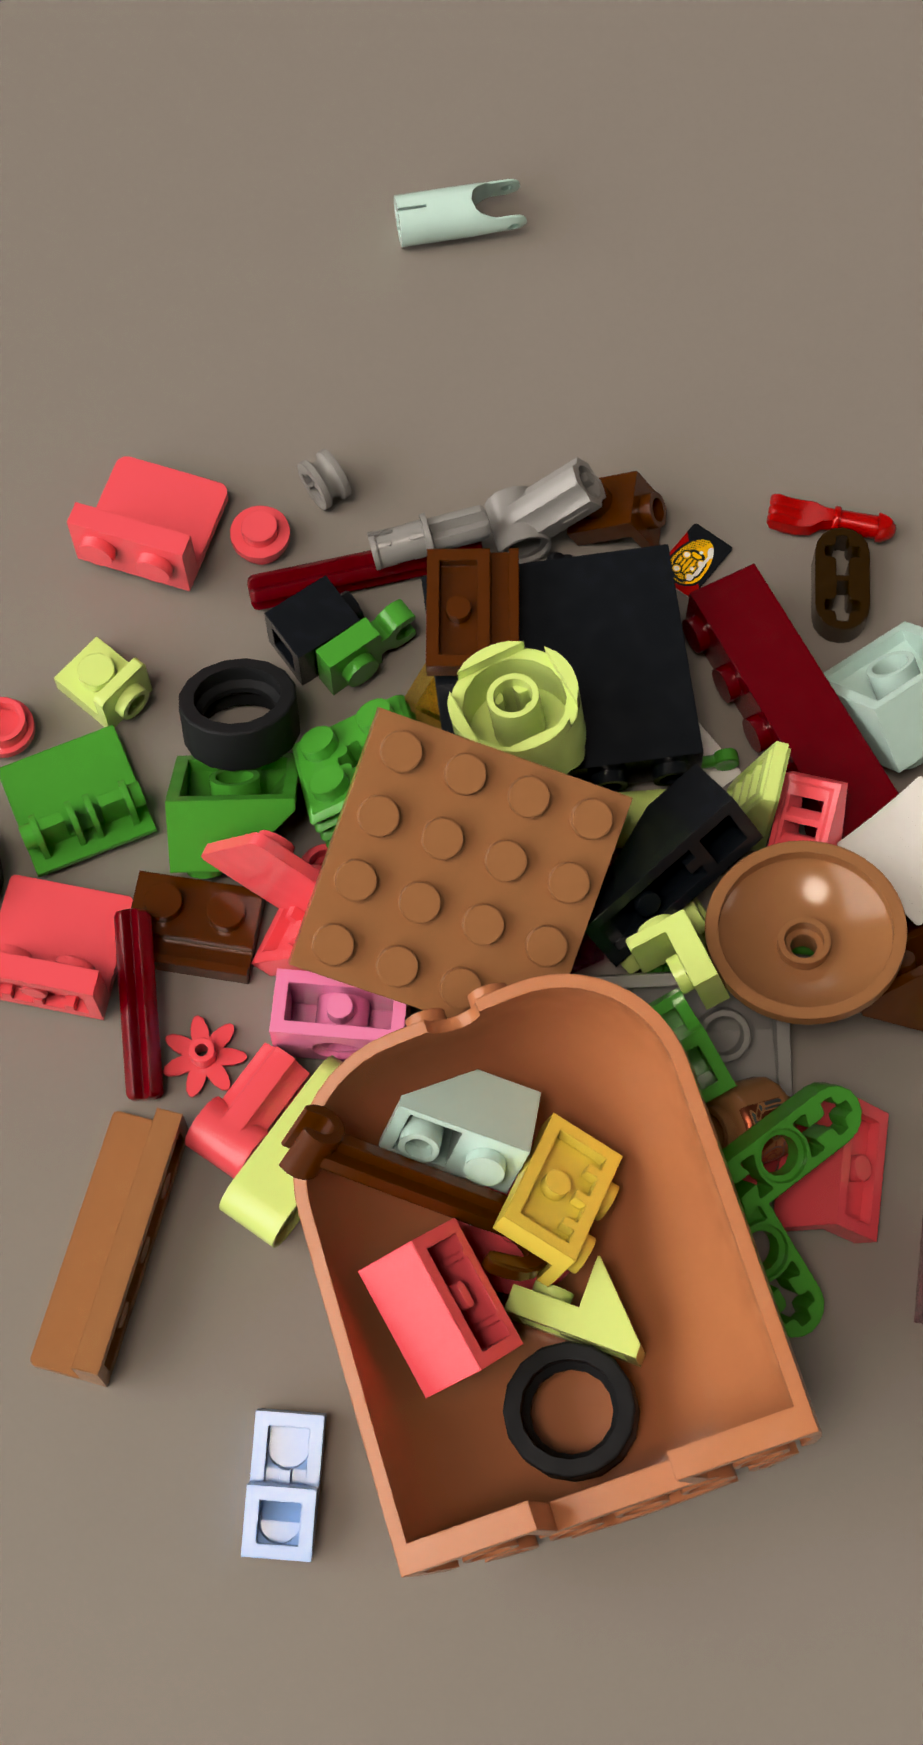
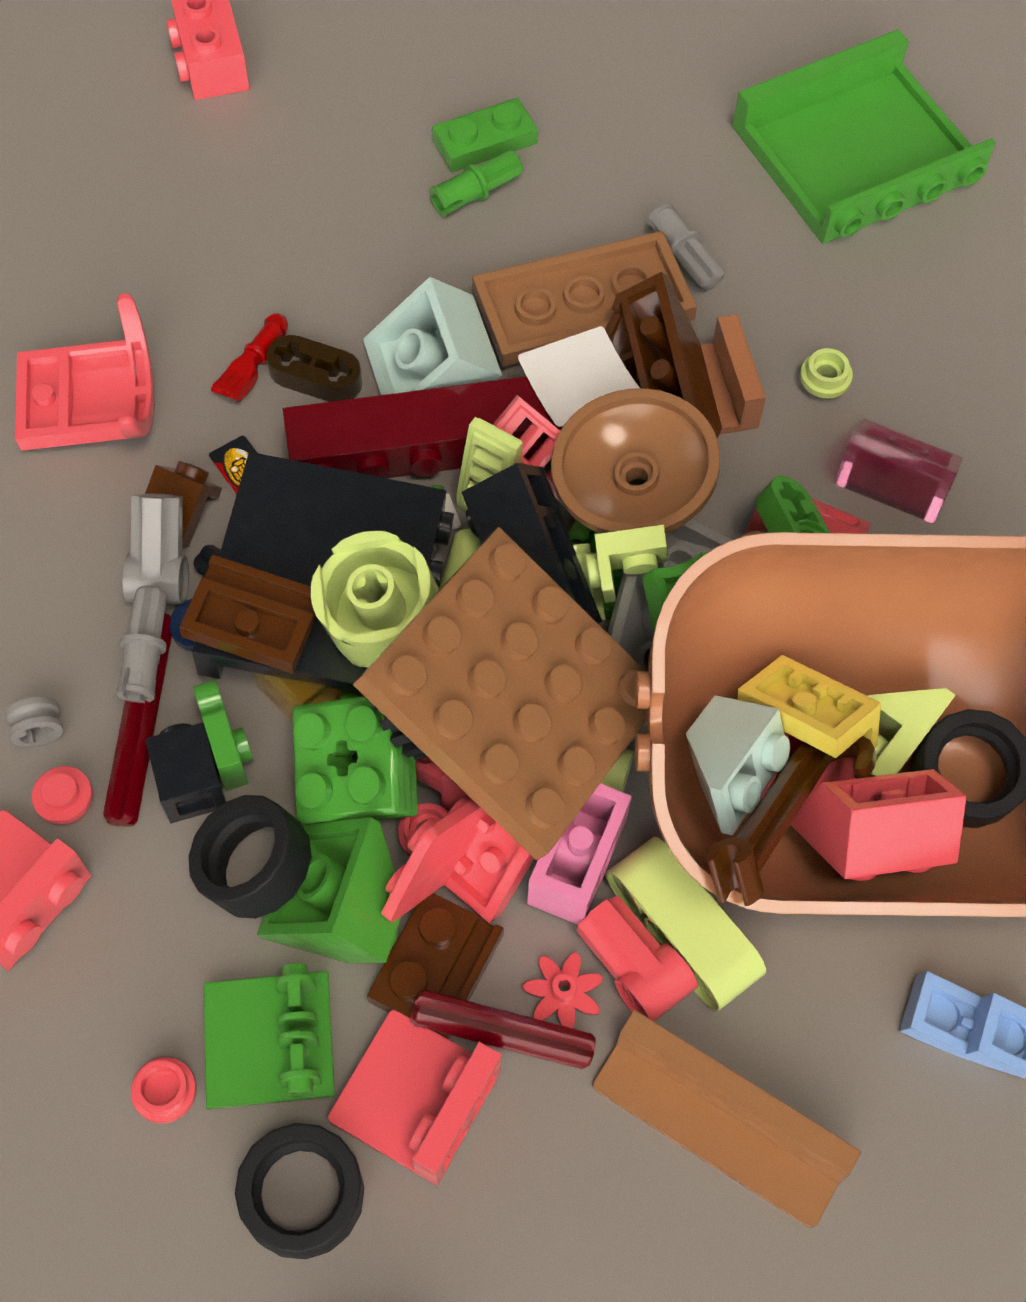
camera: 75 degrees left, 5 degrees down
(105, 683) = (157, 979): yellowish green bracket -> none
(715, 380) = (86, 389): none -> coral piece

